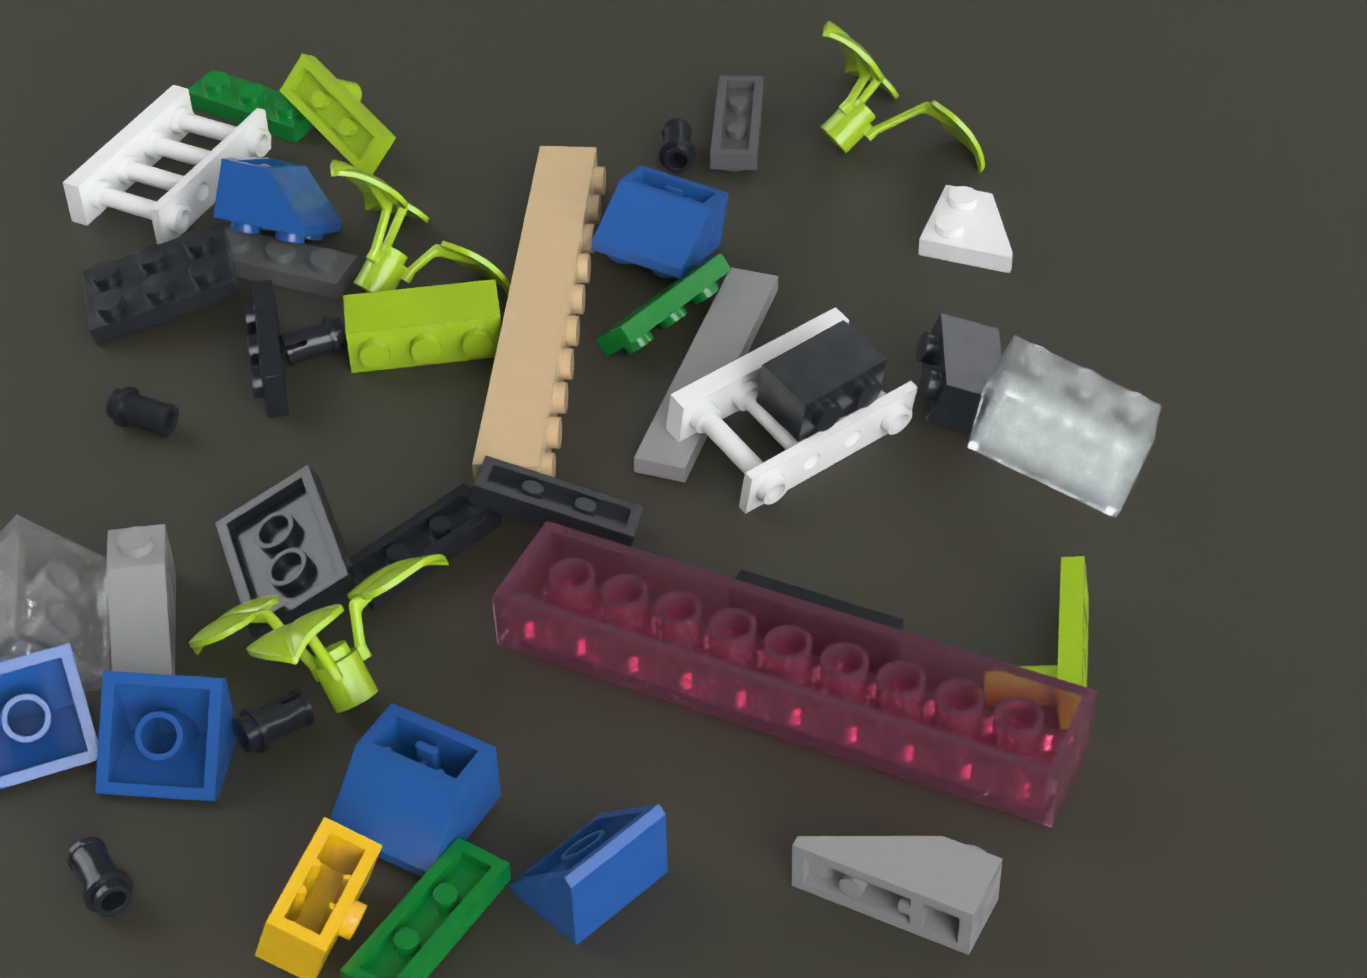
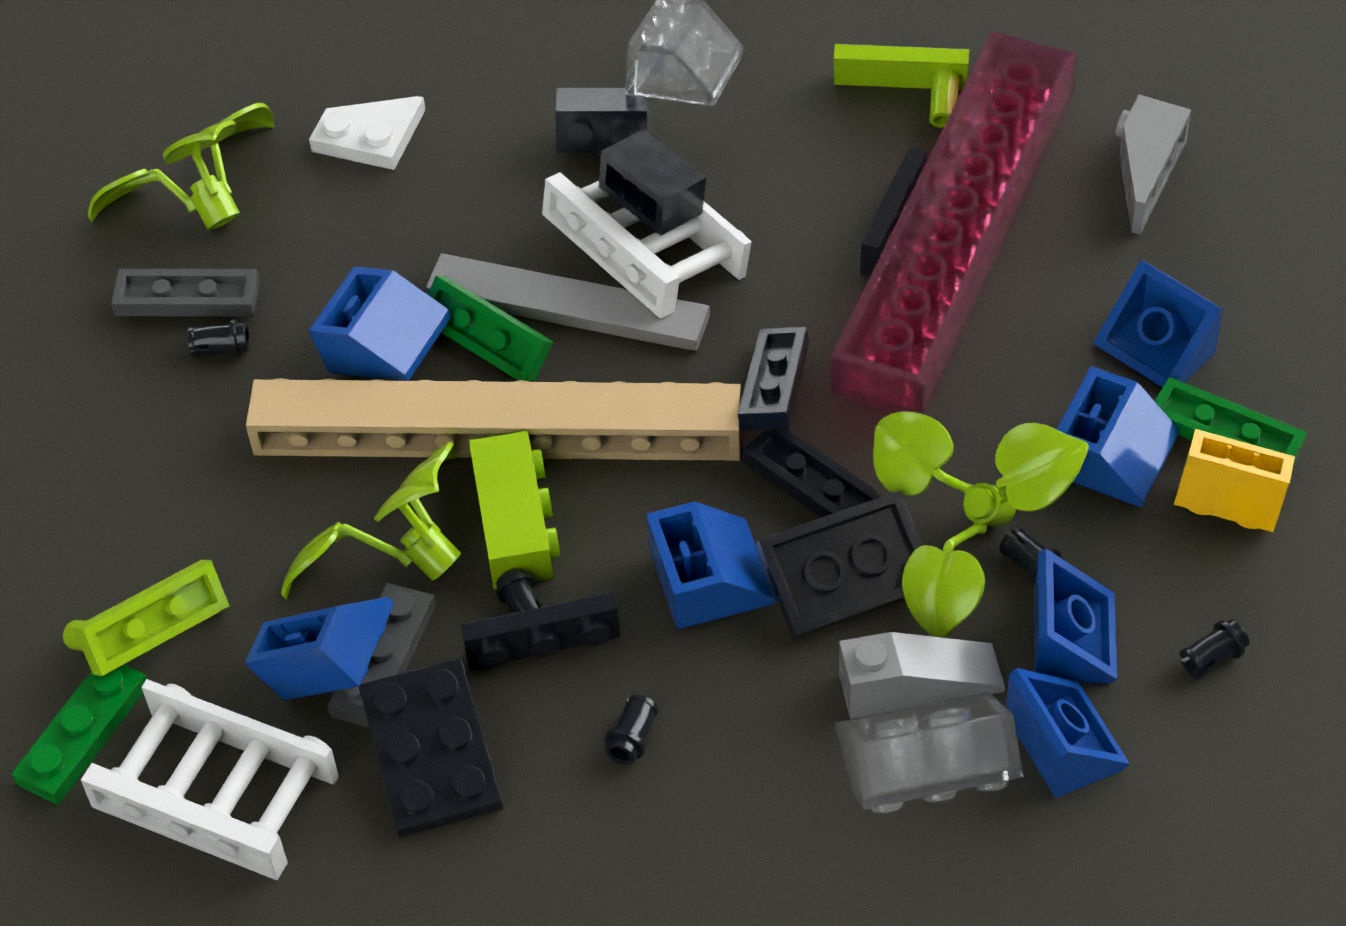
camera: 90 degrees left, 10 degrees up
(318, 430) = (706, 563): none -> blue slope

